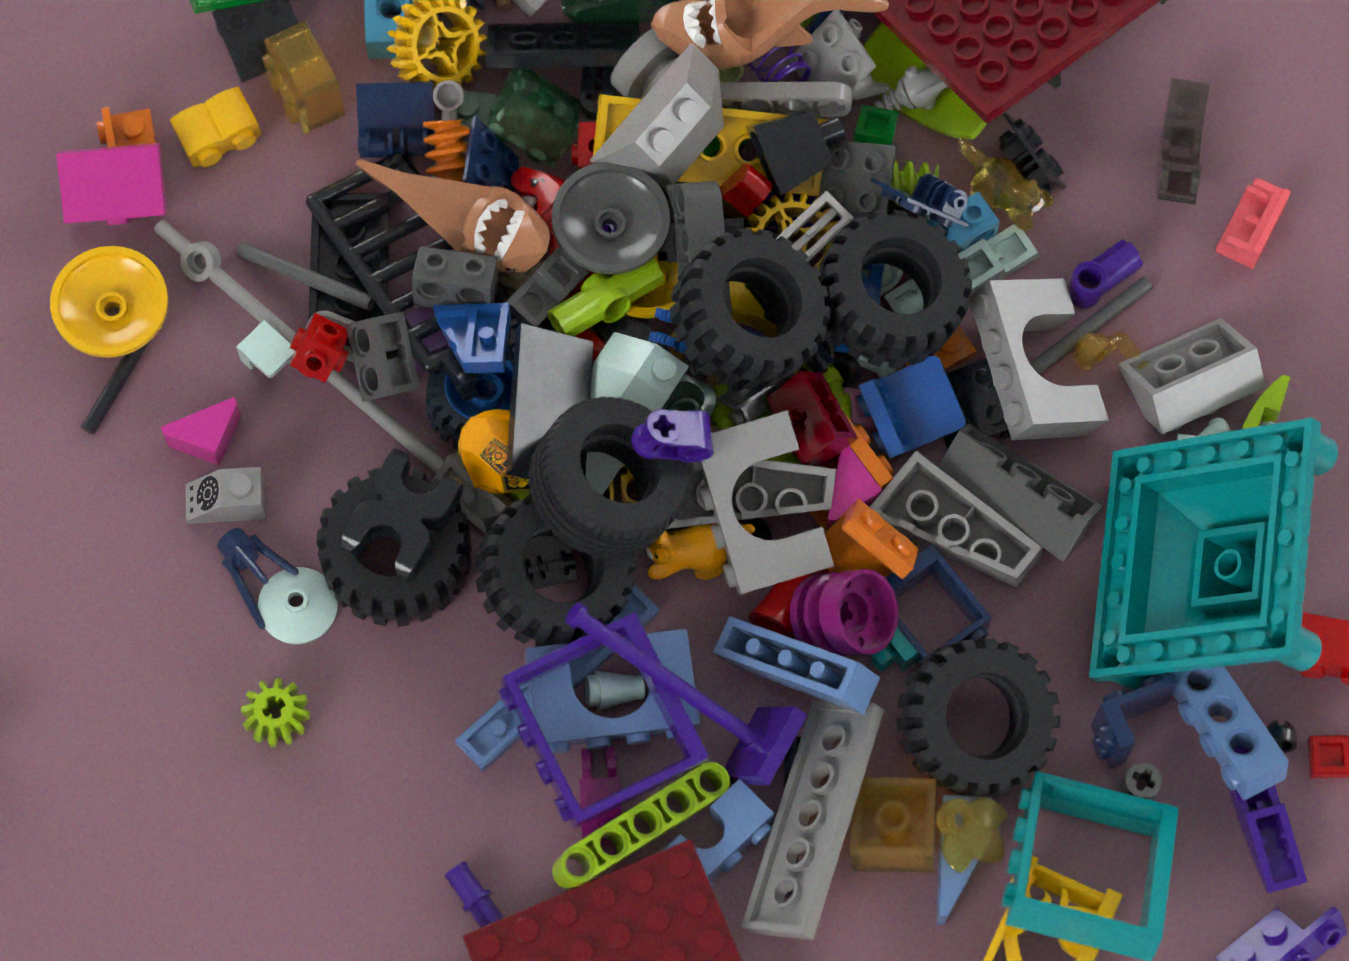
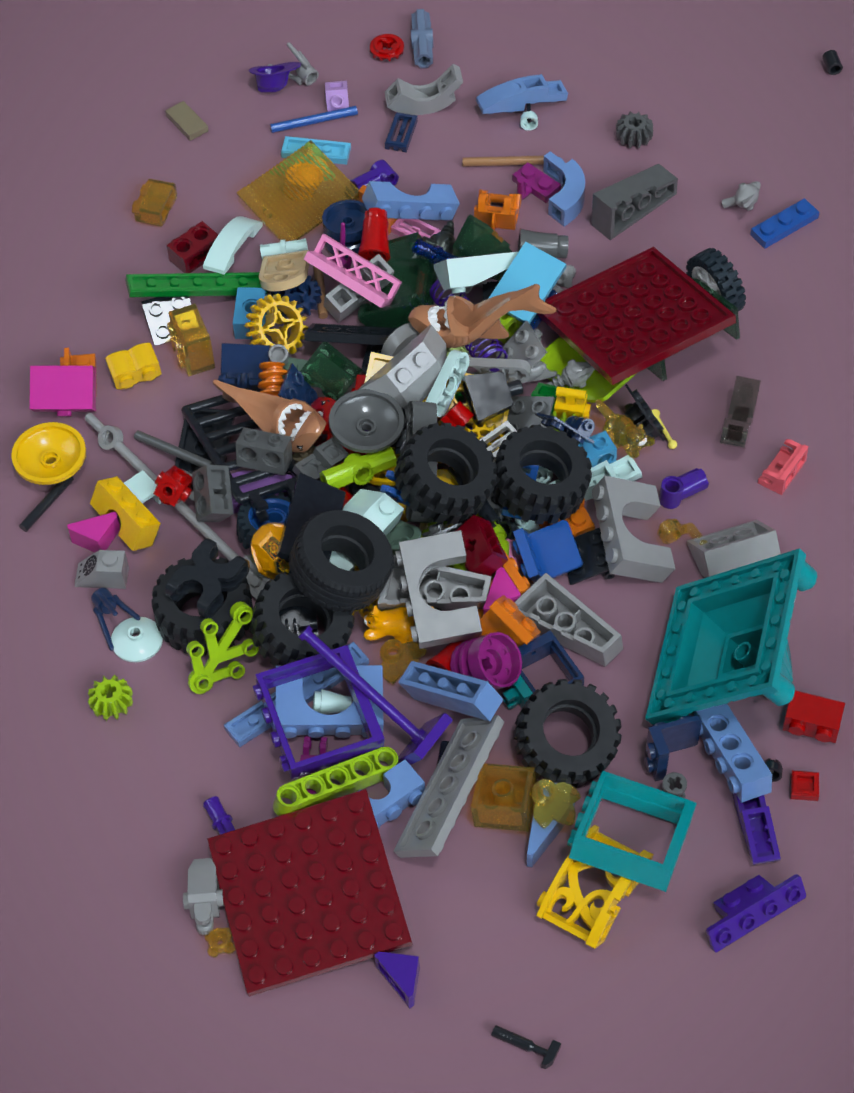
camera: 10 degrees right, 15 degrees down
(269, 411) = (137, 522): none -> yellow arch
(411, 667) = (221, 651): none -> lime plant
(476, 334) = (272, 480): blue wing -> none
(674, 436) = (387, 535): dark purple piece -> none
(710, 611) = (395, 665): none -> clear yellow plate
(727, 133) = (454, 370): none -> light aqua beam
(920, 144) = (572, 402): none -> yellow brick
(1021, 491) = (614, 605): dark grey wedge -> none
(1078, 195) = (672, 444): none -> light yellow hinge
(1091, 325) = (677, 514): dark grey bar -> none

